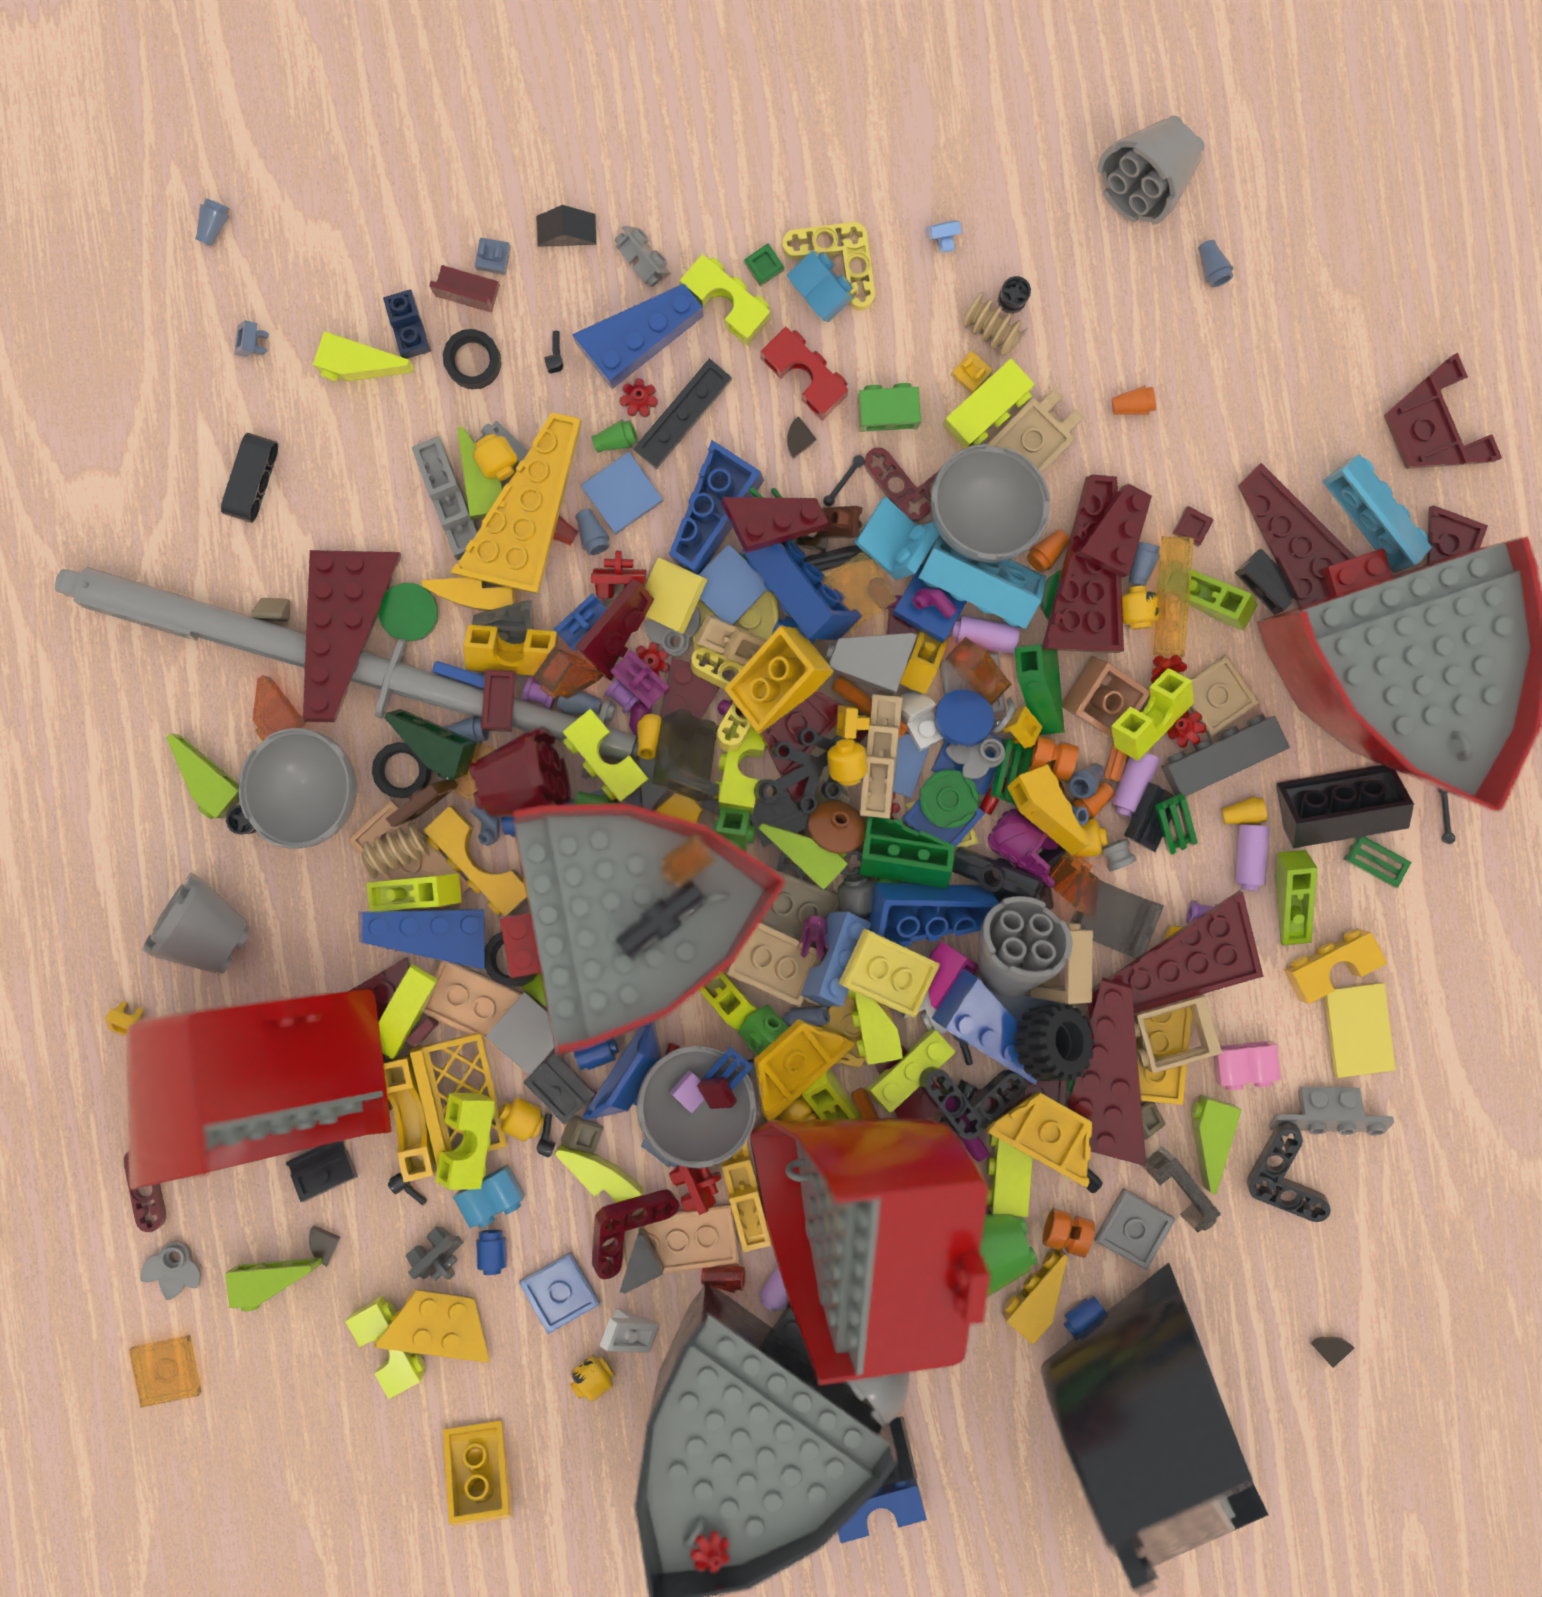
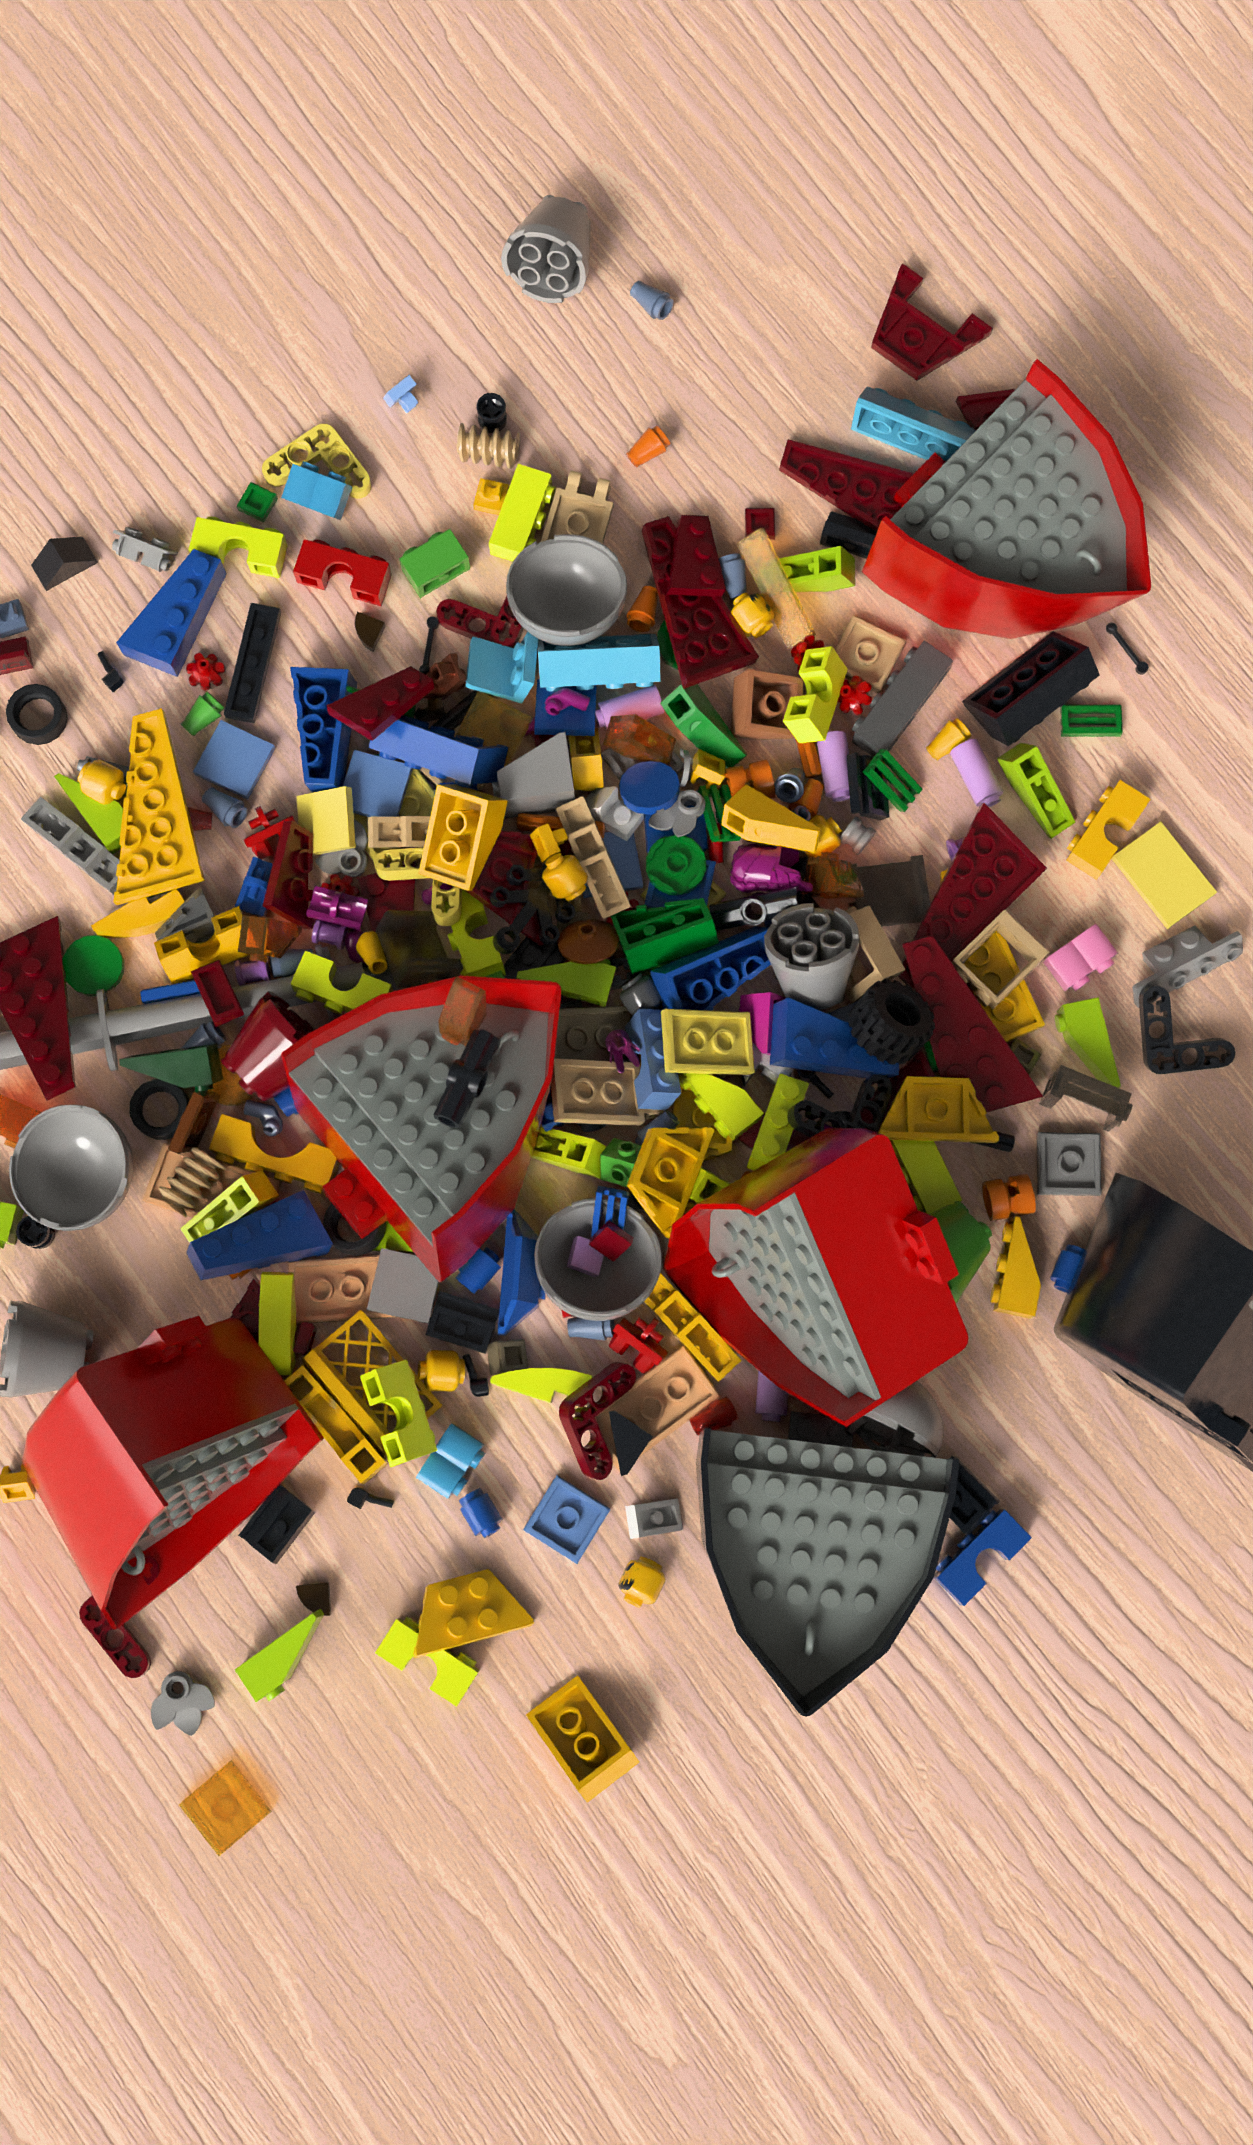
camera: 30 degrees left, 10 degrees down
(438, 1260) = (432, 1548): dark grey hips -> none
(711, 1552) = (833, 1643): red plant -> none

